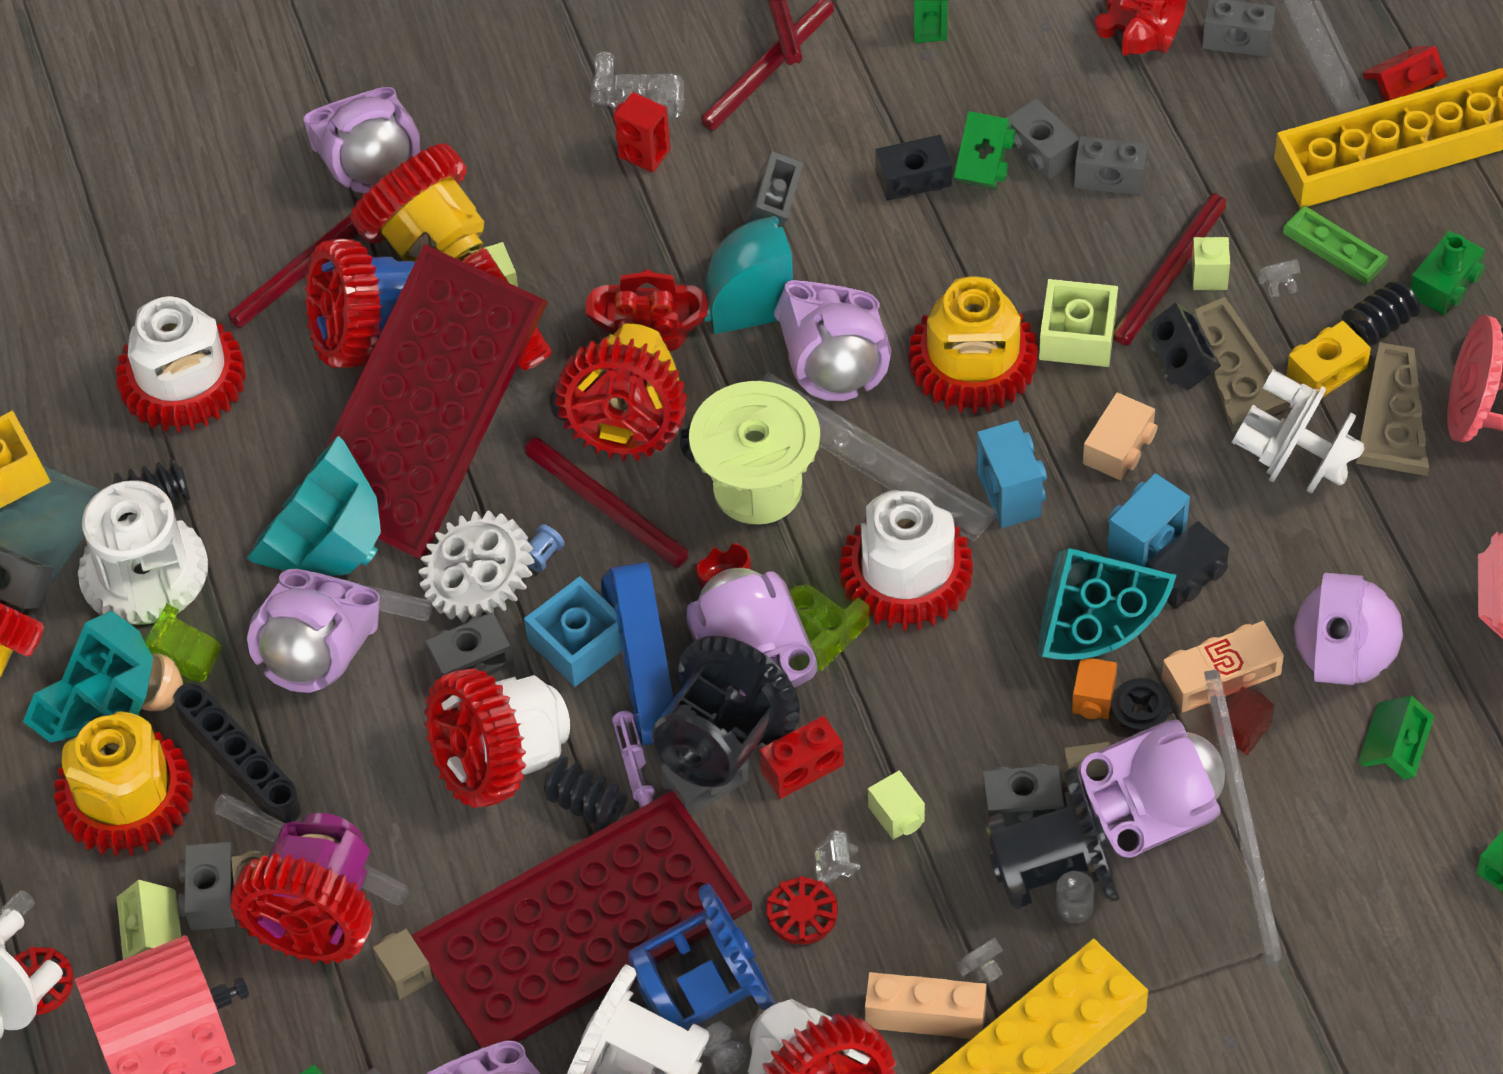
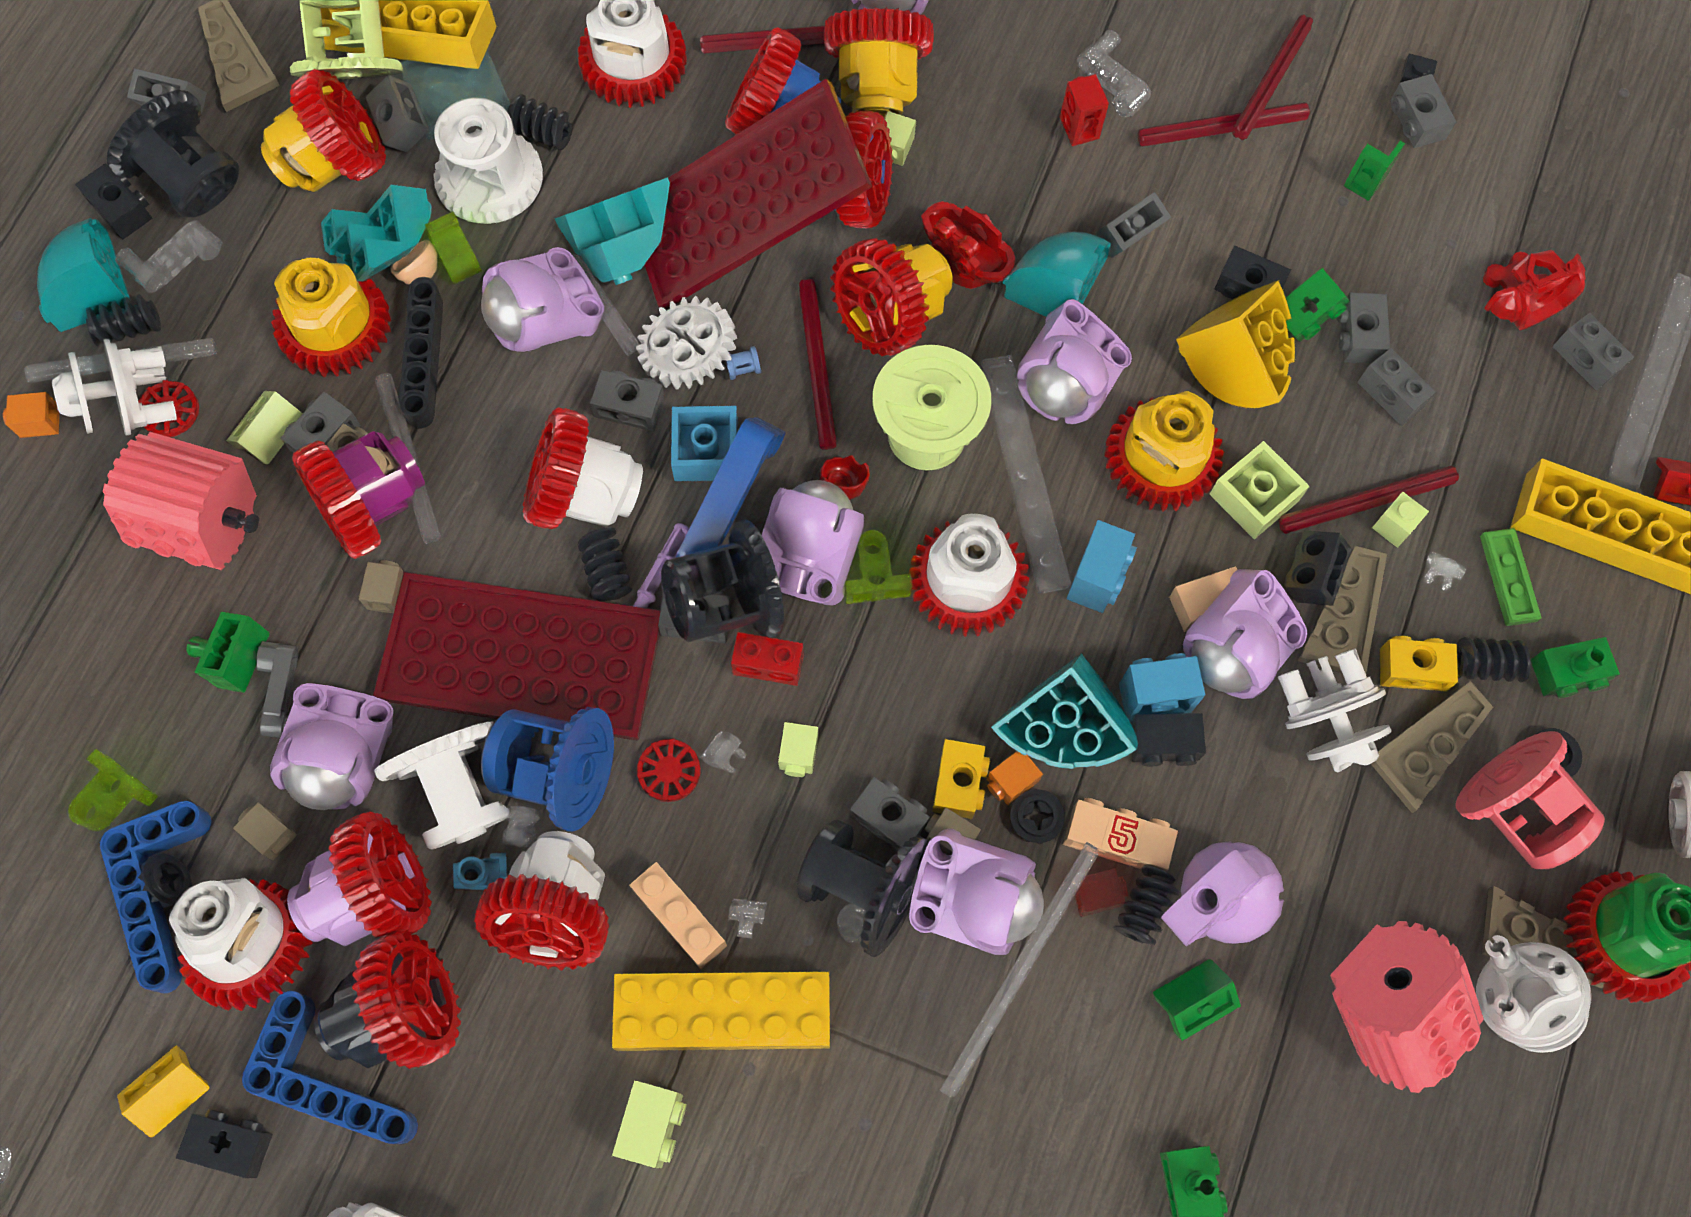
camera: 35 degrees right, 15 degrees up
(959, 224) = (1243, 348): none -> yellow brick
(1047, 704) = (966, 759): none -> yellow brick
(1175, 433) = (1245, 634): none -> lavender piece
(1293, 696) = (1147, 905): none -> black piece

